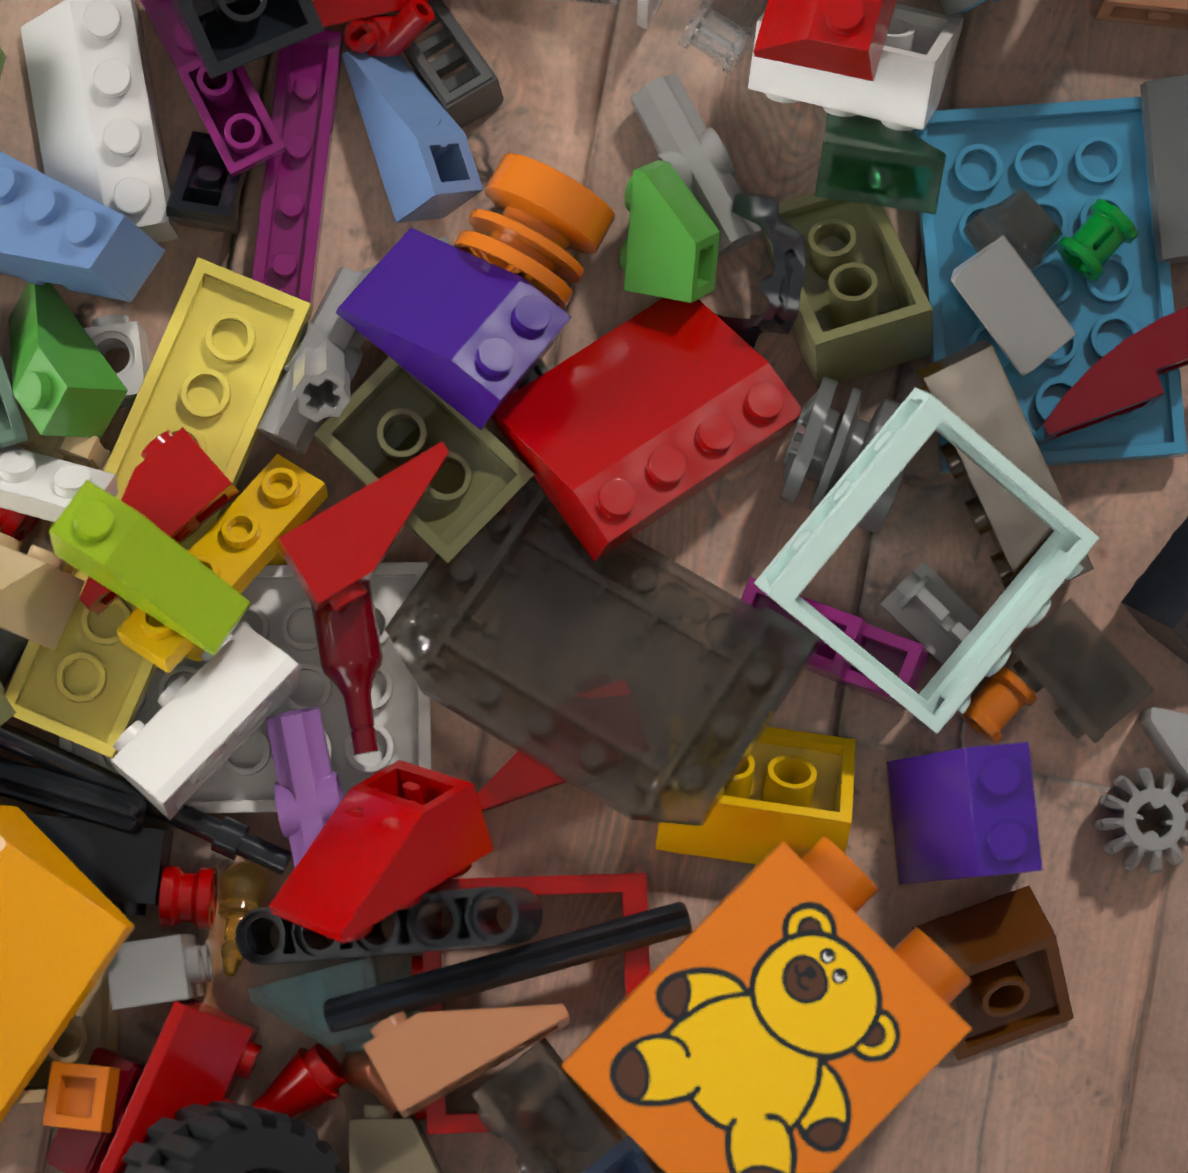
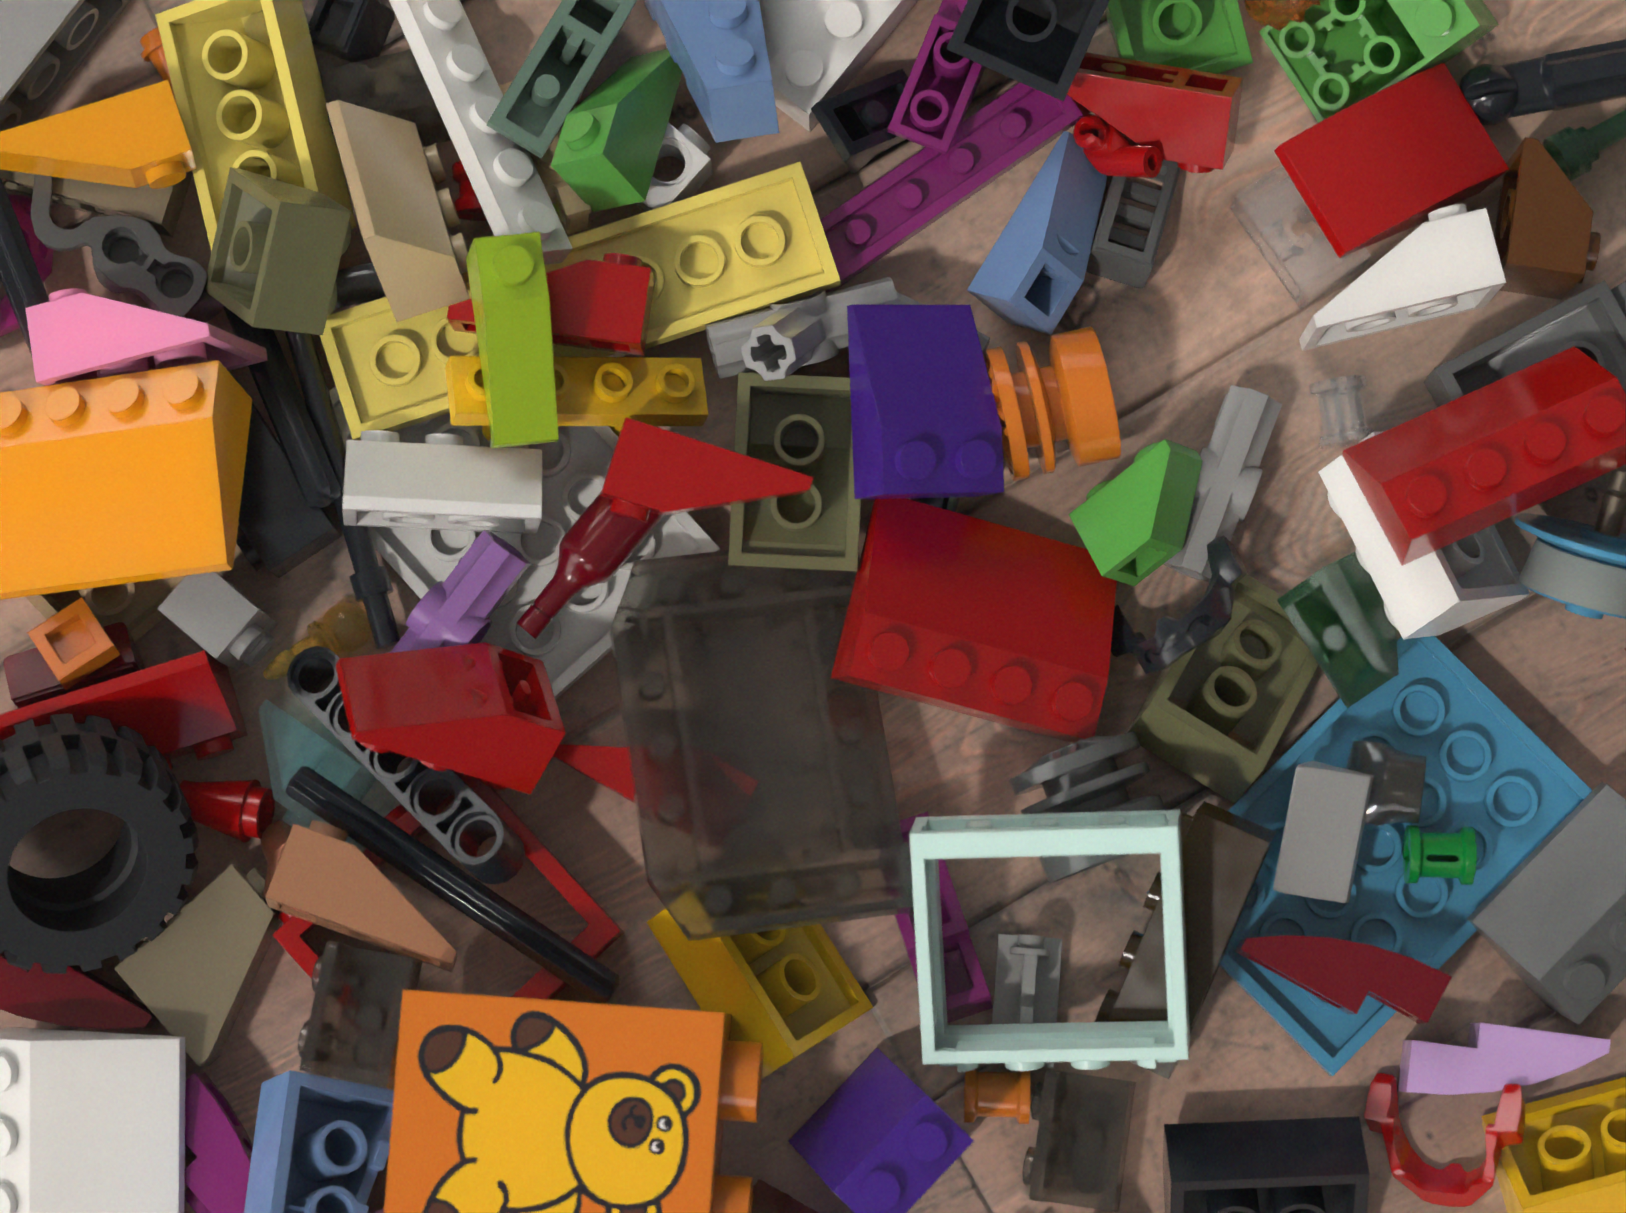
camera: 55 degrees right, 0 degrees up
(188, 897) = (298, 591): red wheel -> none

